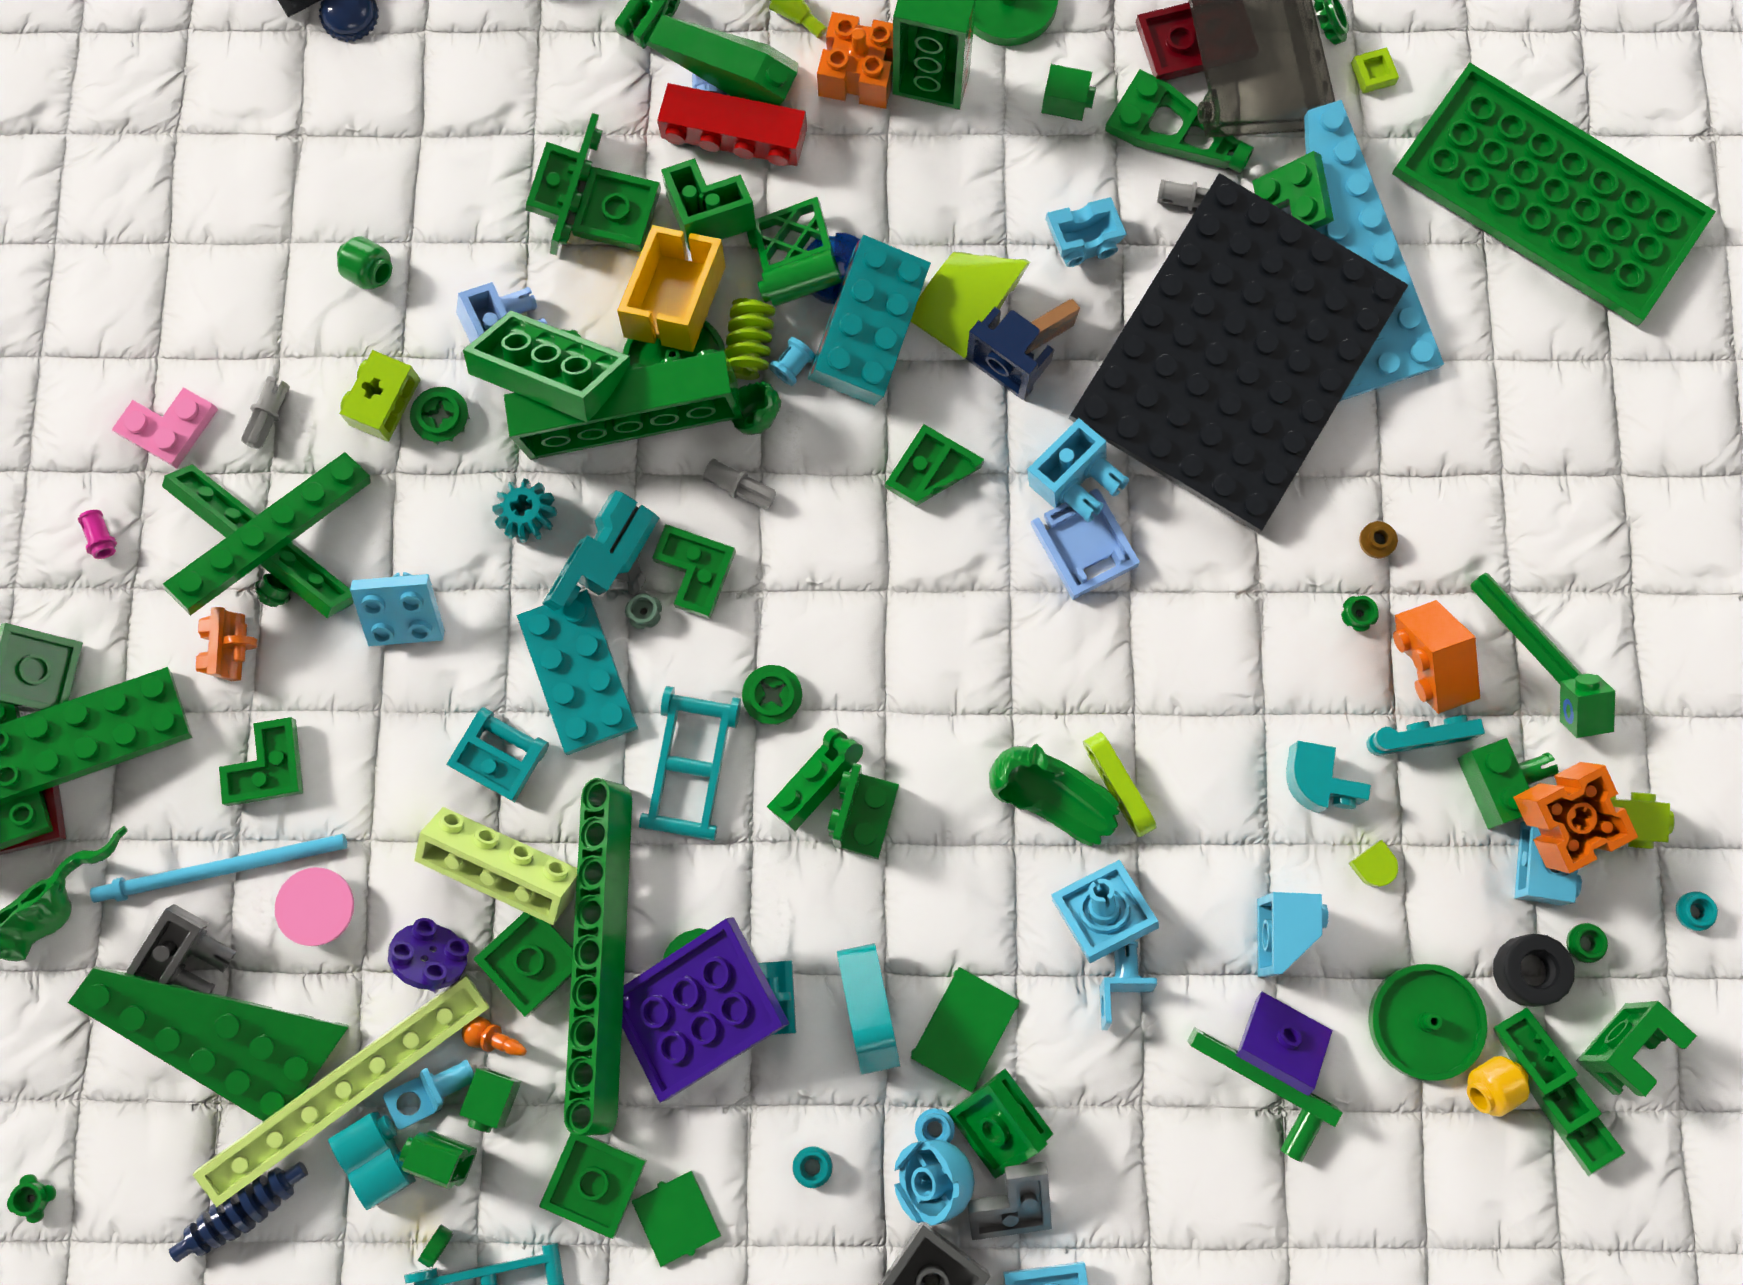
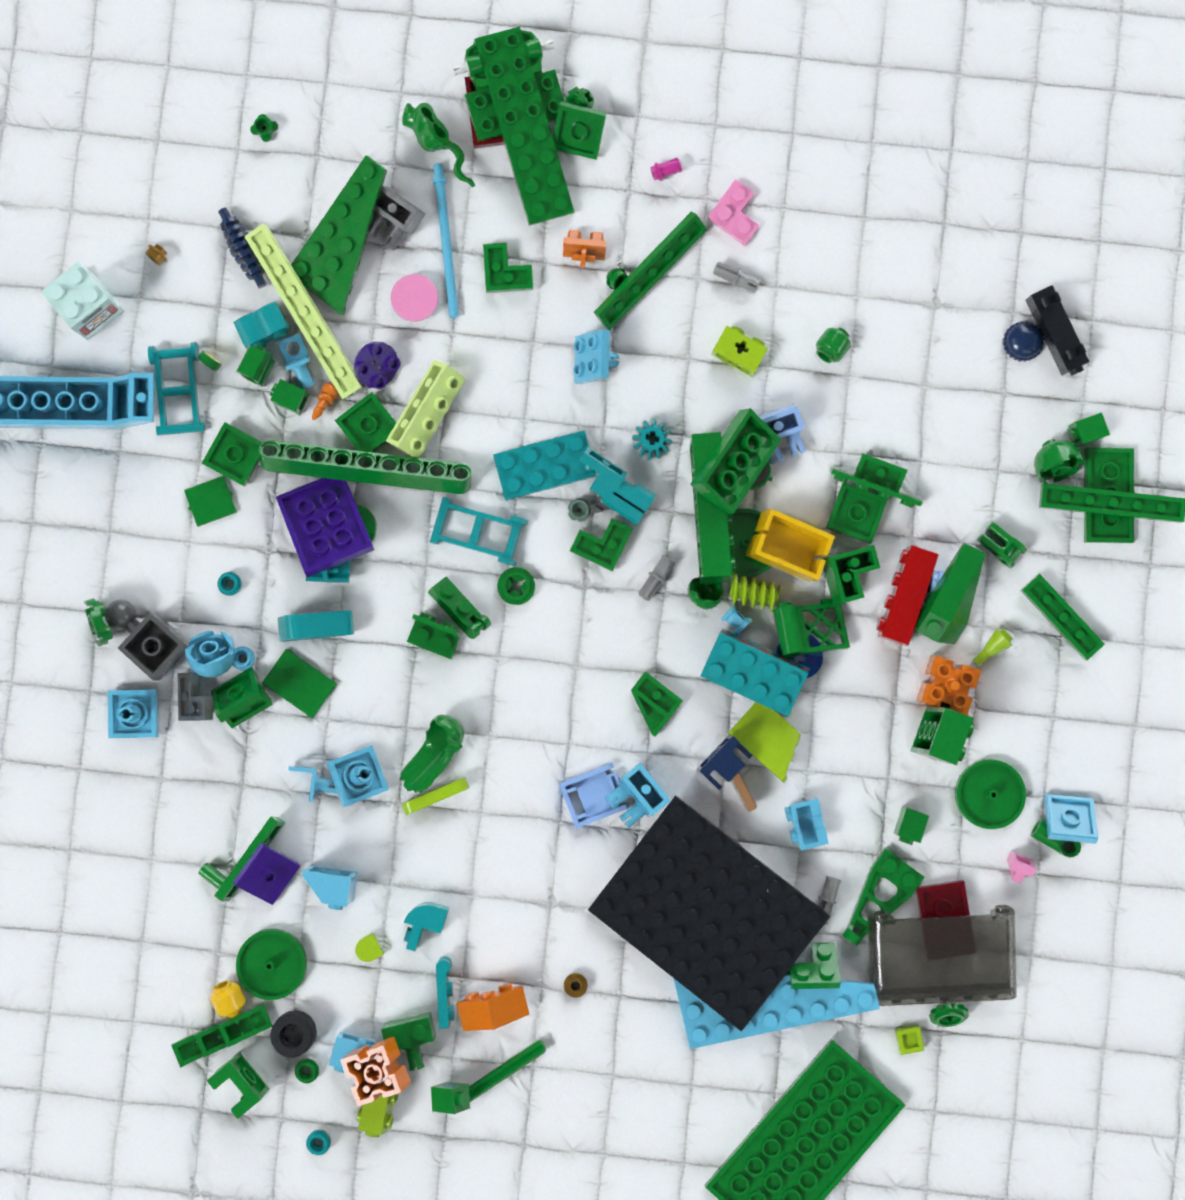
camera: 95 degrees right, 10 degrees up
(266, 533) = (650, 278): green plate -> none
(428, 404) = (733, 382): green gear -> none
(492, 766) = (490, 408): teal plate -> none
(1369, 611) = (528, 971): green plate -> none

